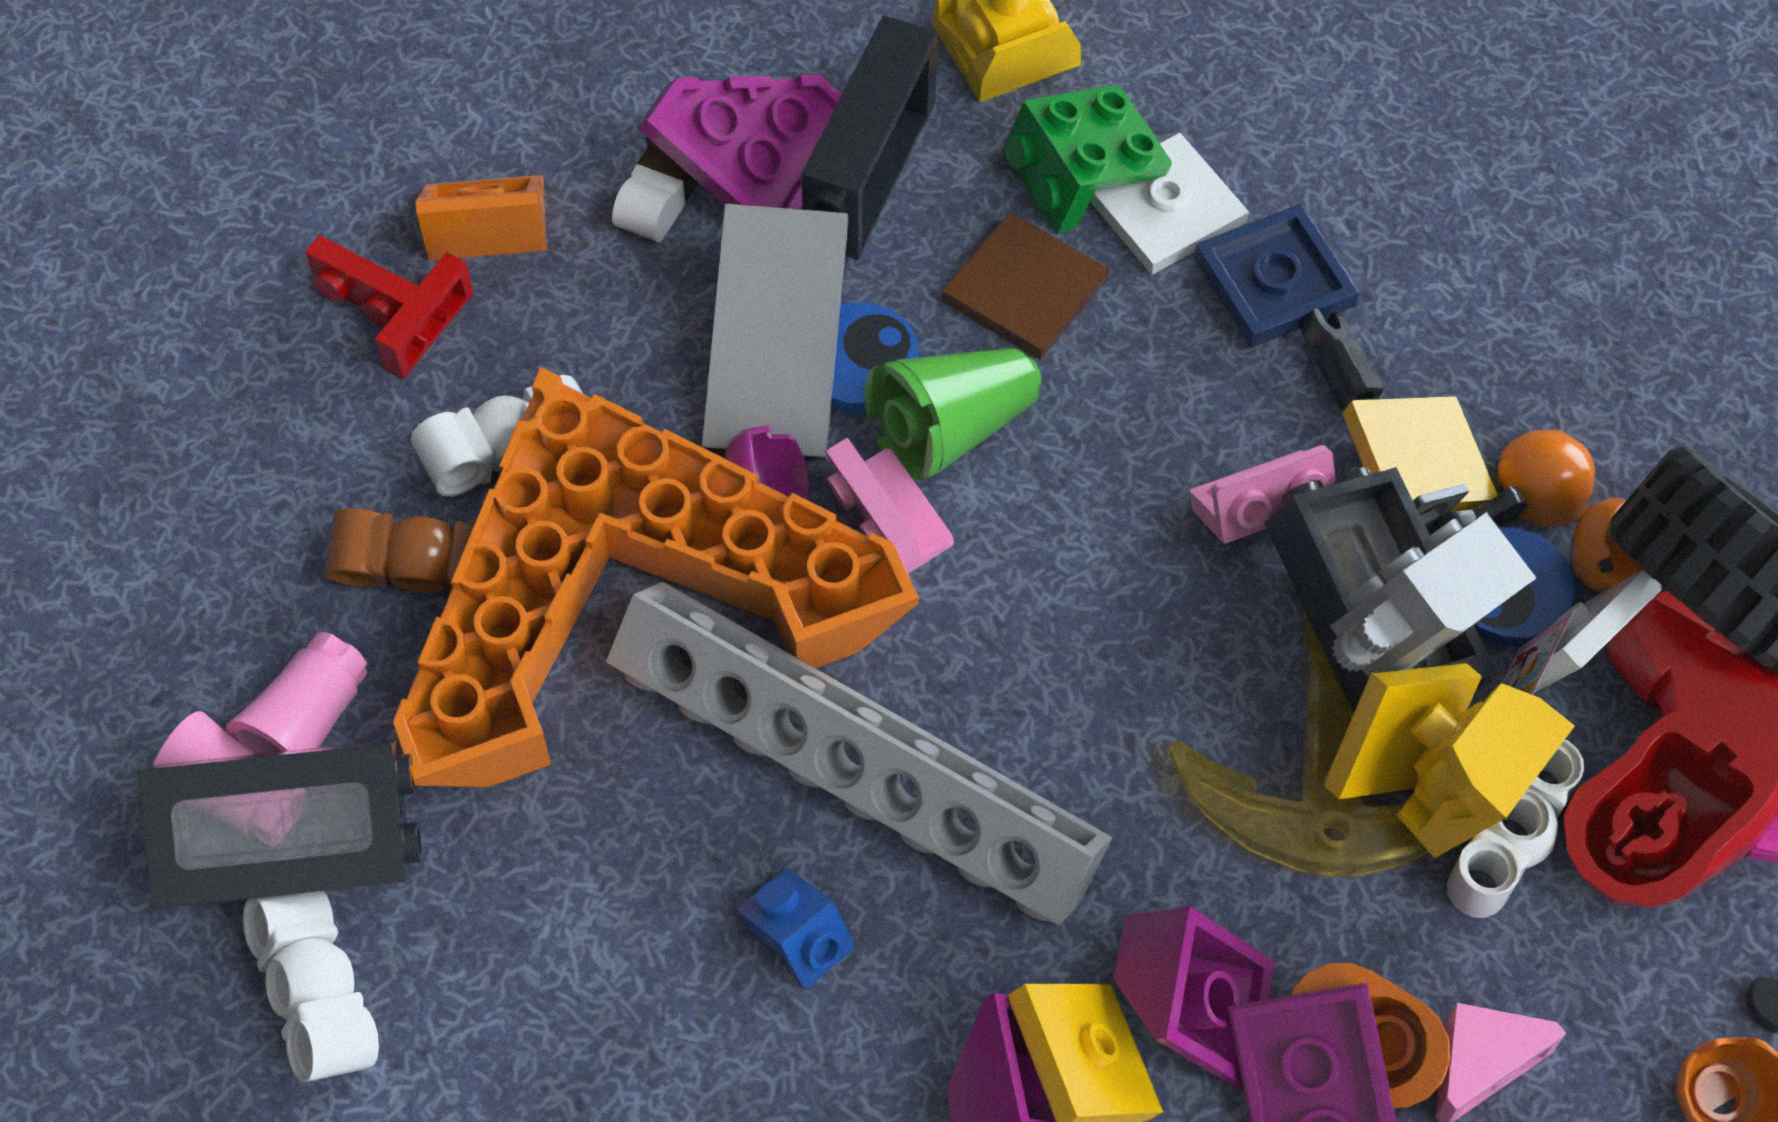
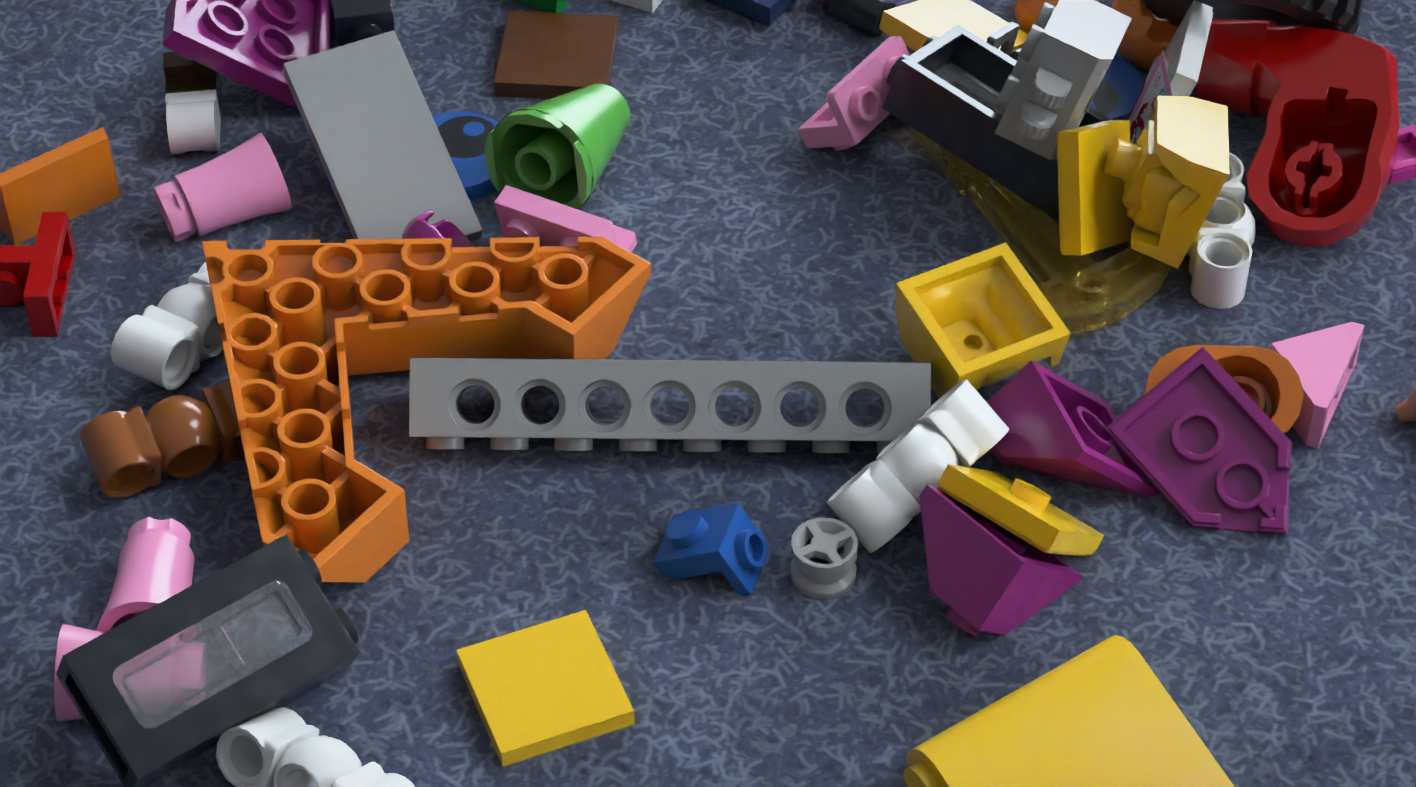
camera: 30 degrees left, 15 degrees down
(563, 986) = (545, 687): none -> yellow tile
(623, 300) = (224, 191): none -> bright pink plant
(884, 977) = (836, 549): none -> light grey wheel
(1023, 947) = (888, 491): none -> white piece
(1183, 826) = (977, 320): none -> yellow brick

